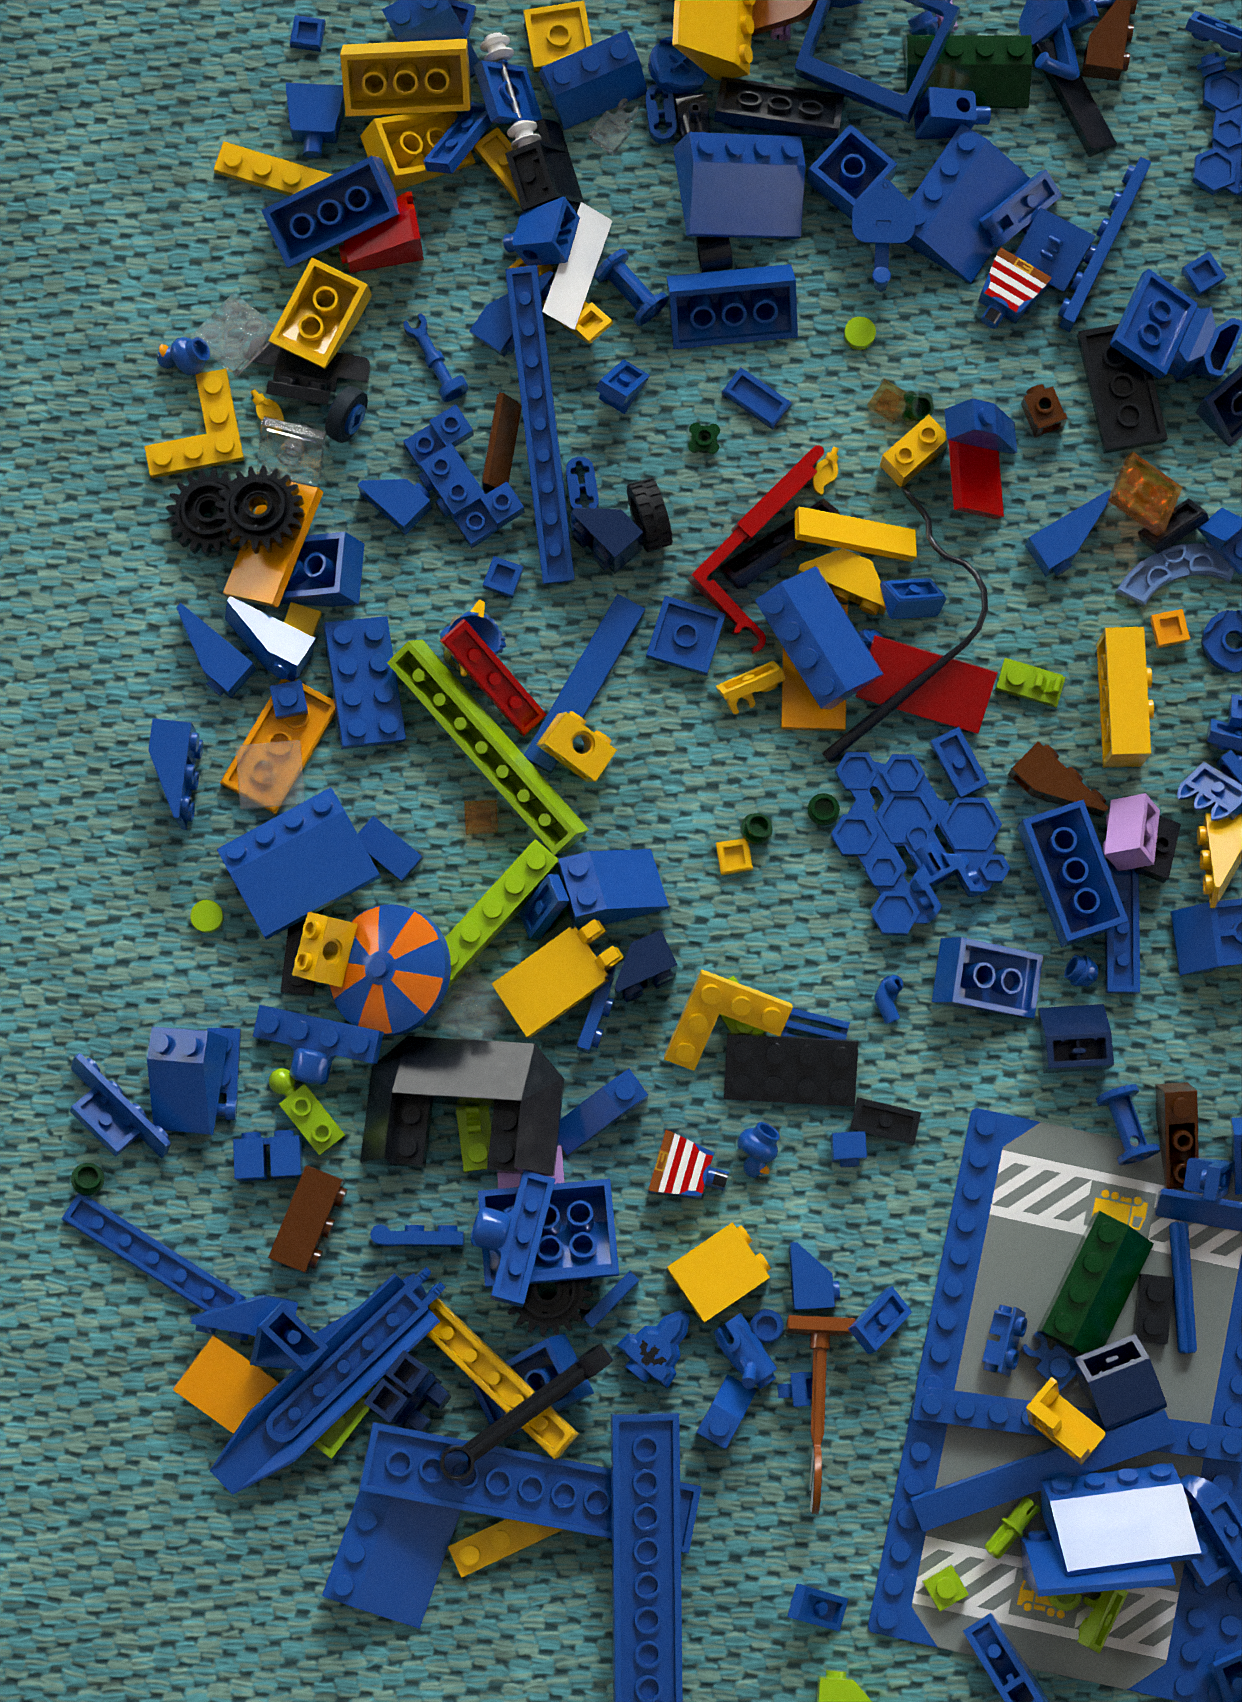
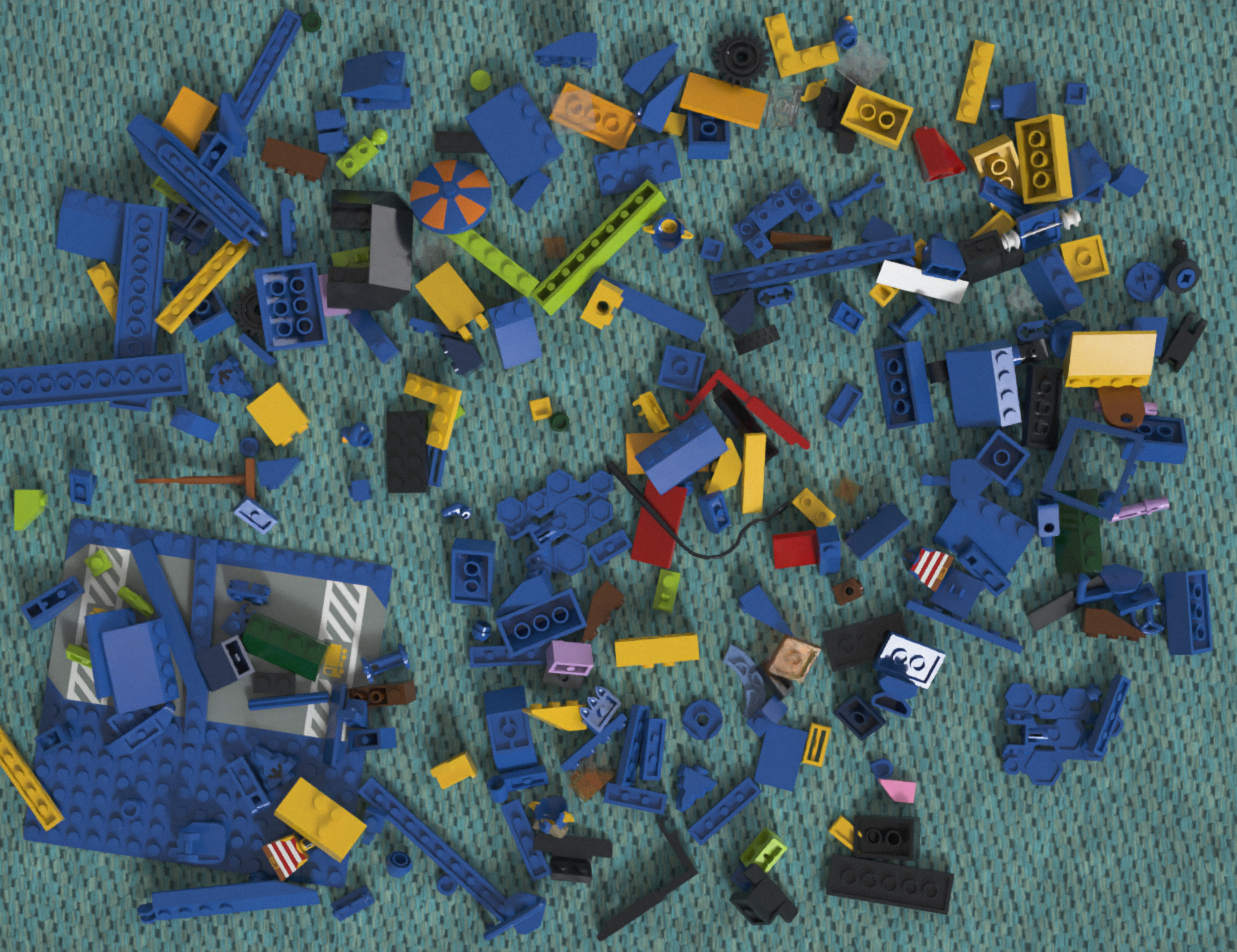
camera: 90 degrees right, 10 degrees up
(111, 1114) = (350, 31): blue bracket -> none
(259, 528) = (738, 101): black gear -> none
(288, 699) = (621, 119): blue plate -> none
(316, 1041) = (404, 155): blue plate -> none
(324, 949) = (460, 155): yellow brick -> none
(332, 210) = (946, 119): blue slope -> none
(346, 414) = (811, 140): black wheel -> none
(397, 501) = (757, 178): blue slope -> none
(493, 677) = (642, 247): red tile -> none
(515, 1236) = (284, 286): blue plate -> none
(544, 906) = (497, 290): blue plate -> none
(583, 1368) = (209, 335): black piece -> none
(684, 1169) = (340, 389): torso -> none
(697, 444) = (813, 367): dark green plate -> none
(746, 1352) = (230, 434): blue piece -> none
(799, 1389) = (211, 467): blue tile -> none
(823, 809) = (574, 463): dark green plate -> none
(826, 471) = (797, 452): yellow piece -> none
(859, 333) = (892, 469): lime tile -> none
(885, 1121) = (379, 512): black plate -> none
(900, 156) = (1014, 487): none -> blue rock
(925, 404) = (843, 515): dark green plate -> none
(954, 357) = (875, 530): none -> blue slope
(1024, 890) = (531, 589): none -> blue slope
(1063, 1423) = (195, 630): yellow panel -> none
(1075, 1038) = (438, 628): dark blue slope -> none
(1169, 628) = (707, 678): light orange plate -> none
(1203, 273) = (947, 692): blue plate -> none

